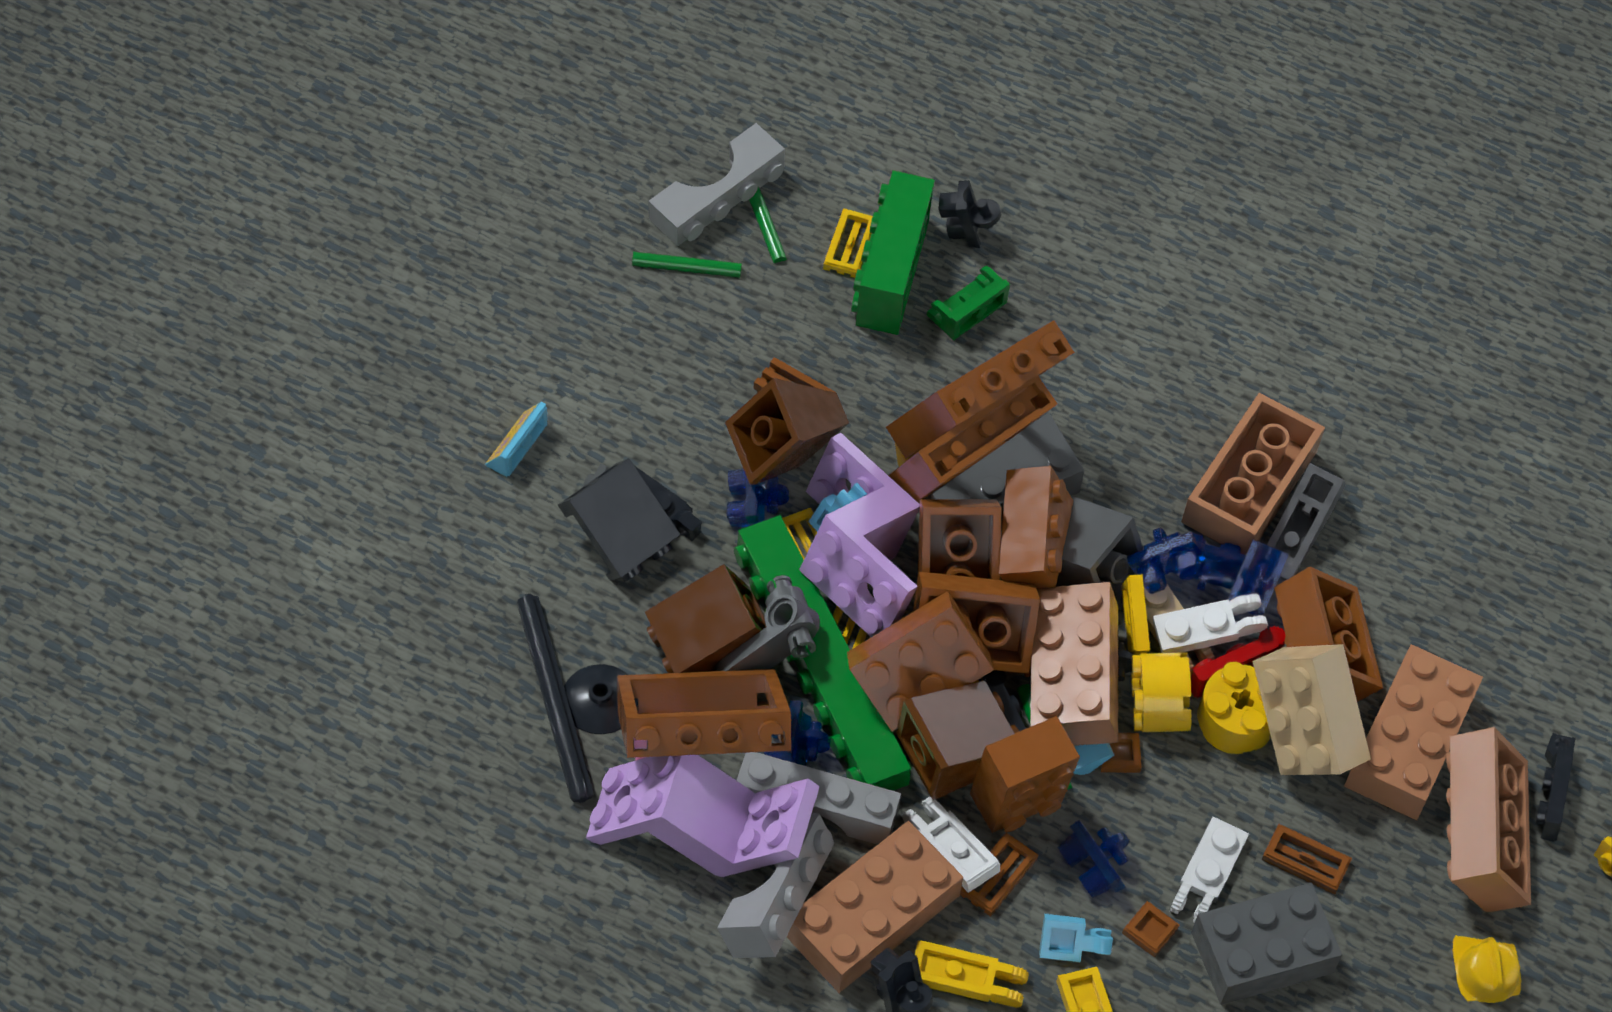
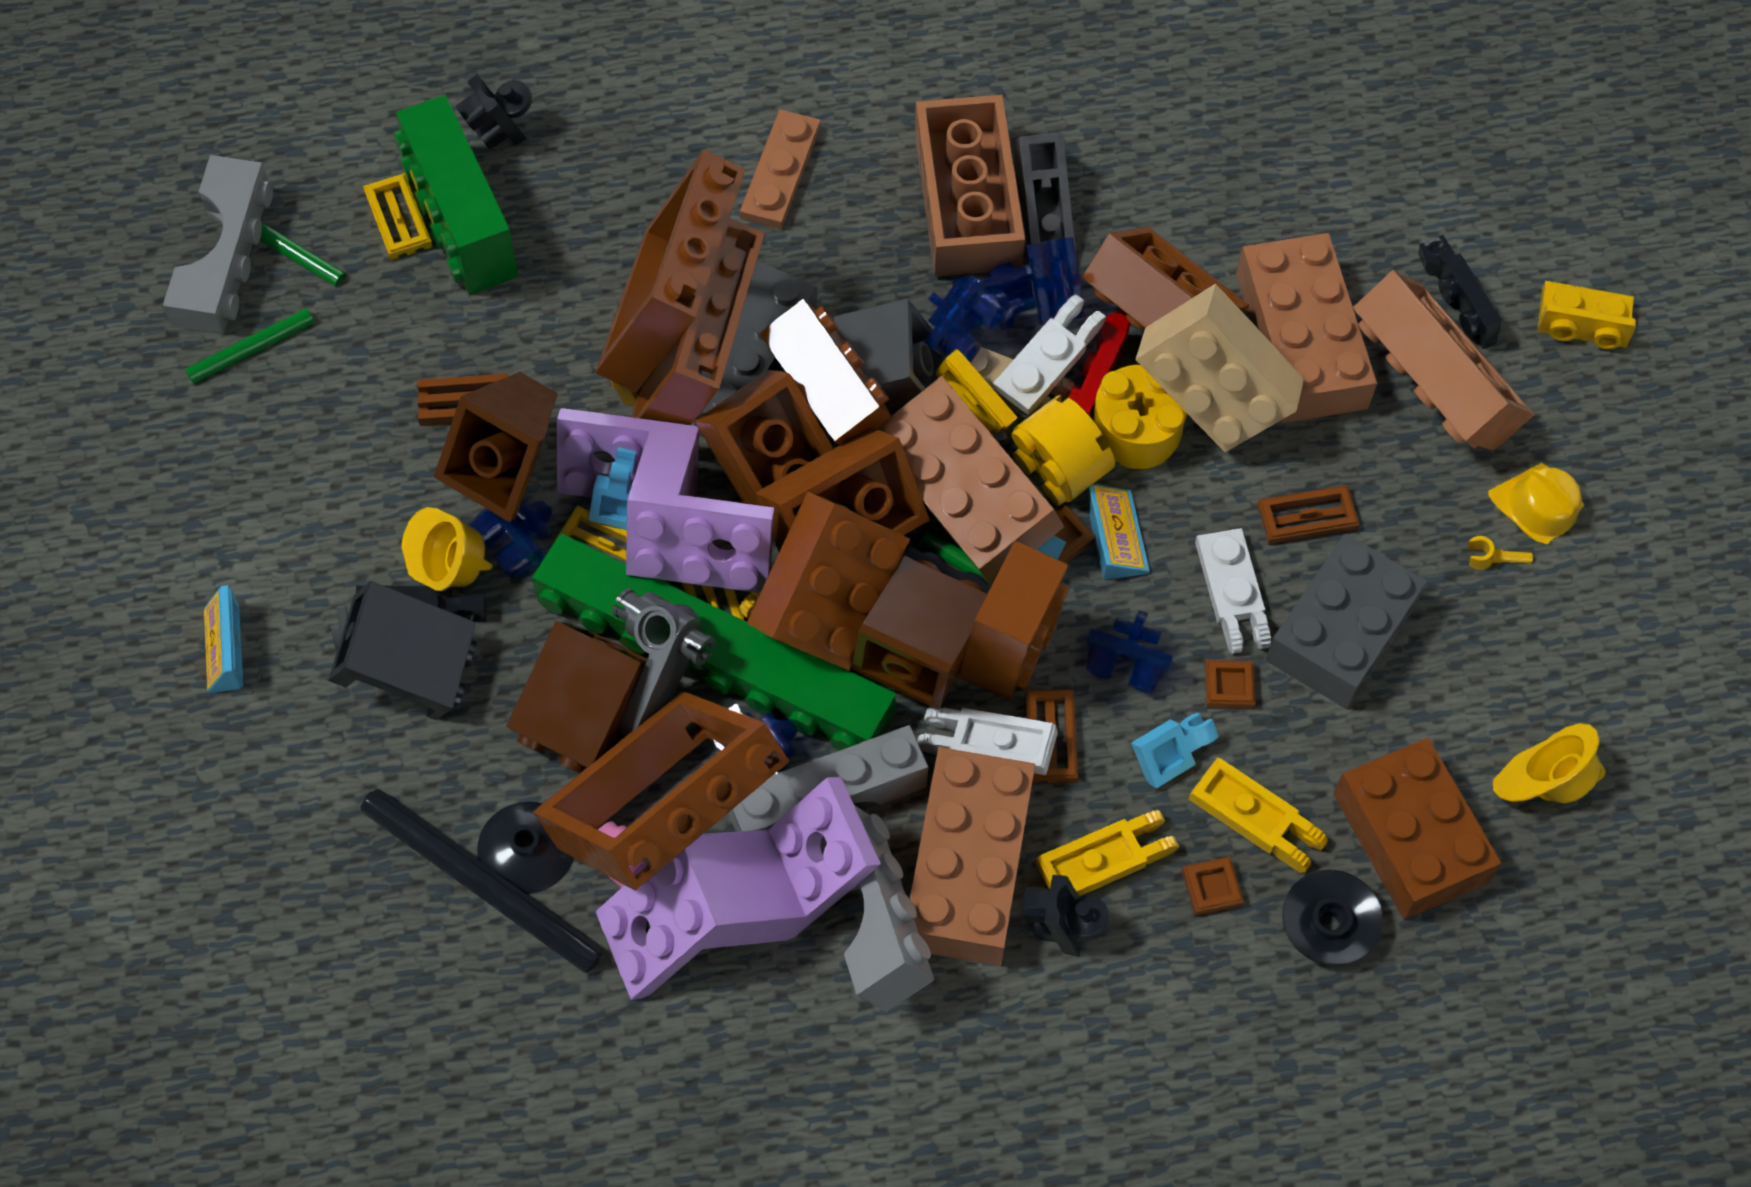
camera: 35 degrees left, 5 degrees up
(699, 476) = (442, 550): none -> yellow piece
(970, 304) = (565, 198): green hinge -> none
(1135, 379) = (780, 169): none -> nougat plate
(1159, 775) = (1116, 532): none -> slope
(1418, 979) = (1494, 555): none -> yellow hand

